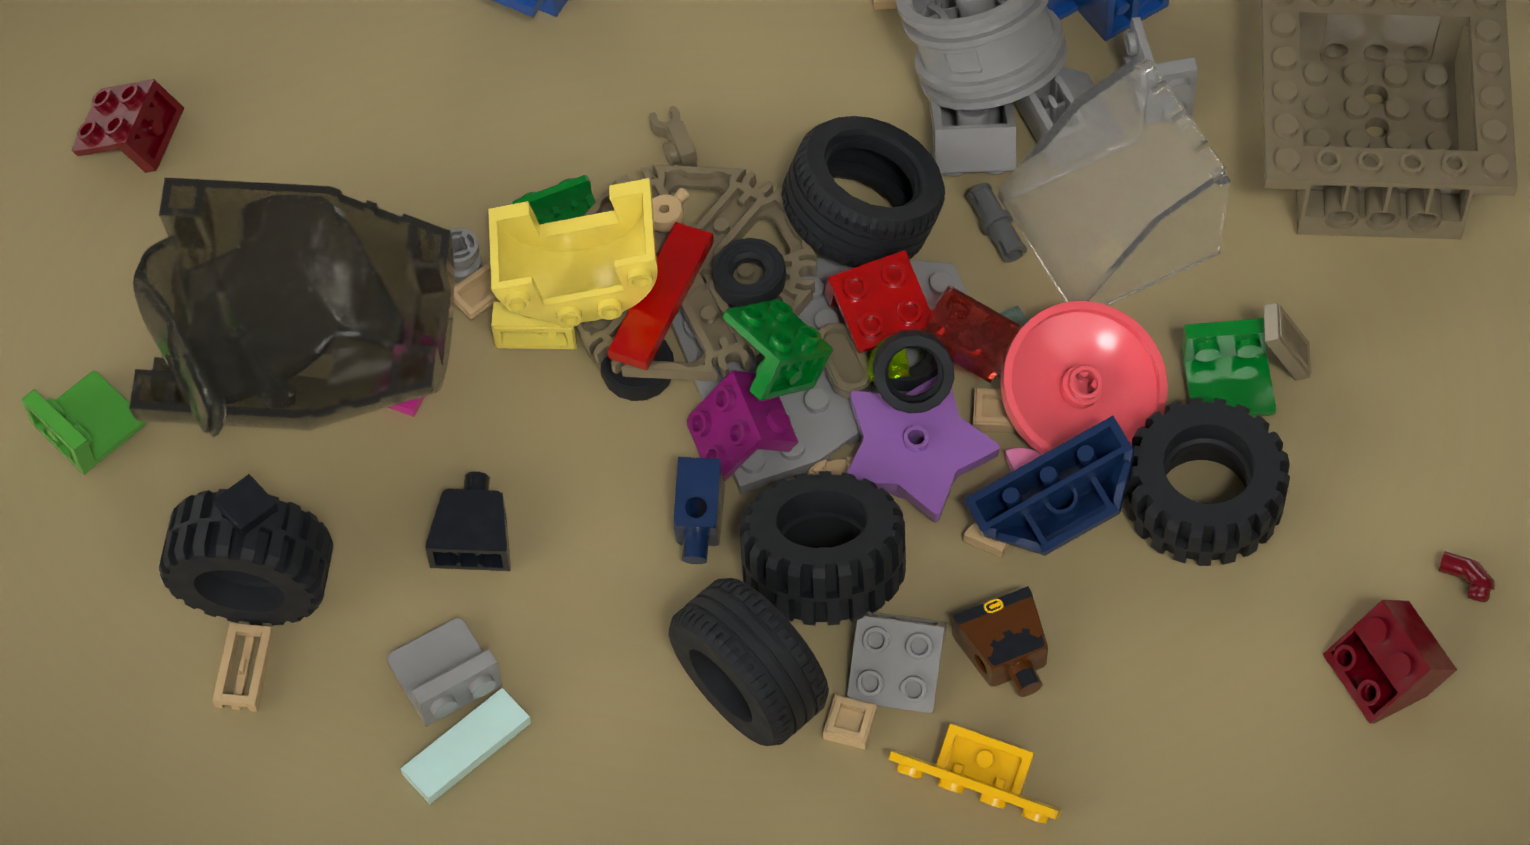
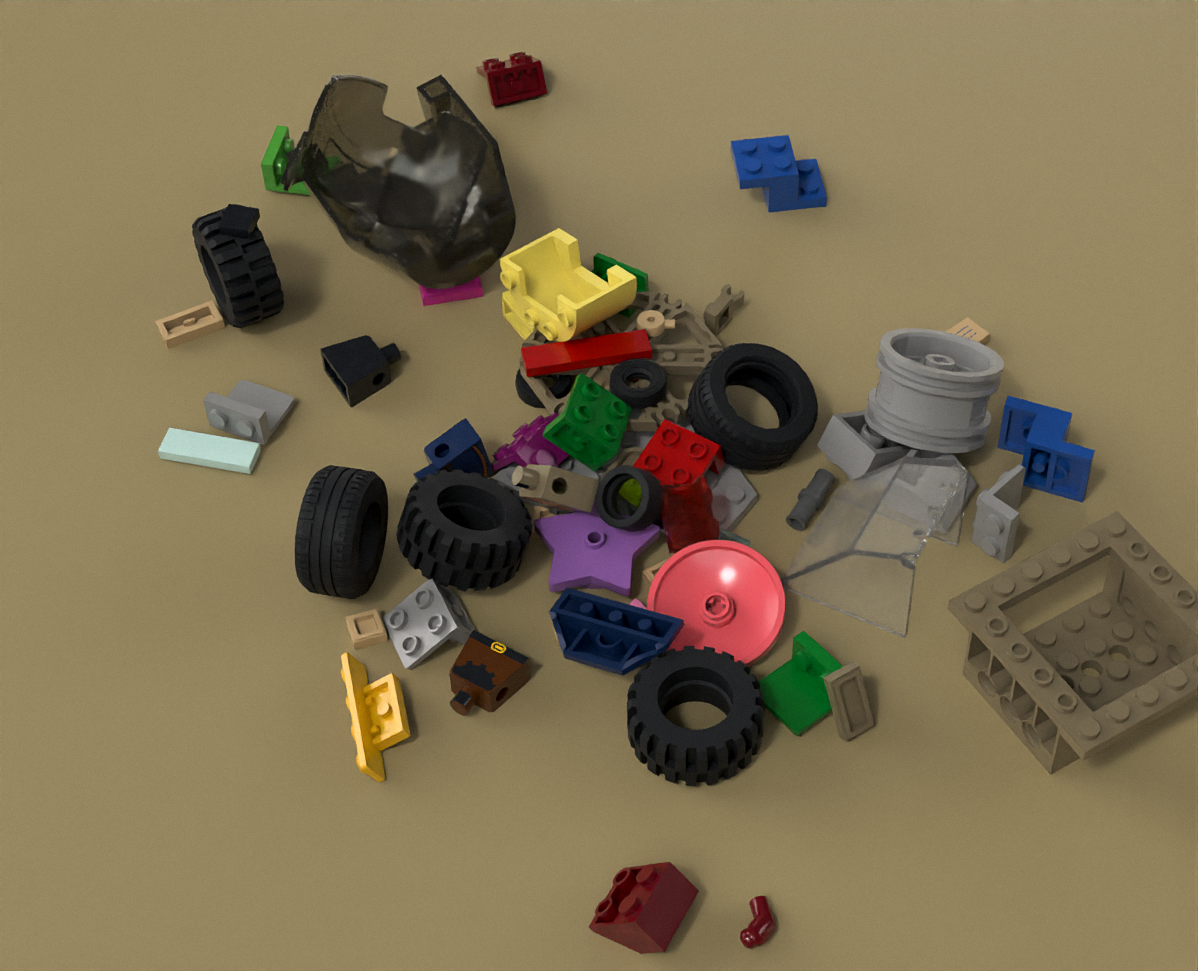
camera: 55 degrees right, 10 degrees down
(834, 433) = (548, 487): none -> dark tan torso

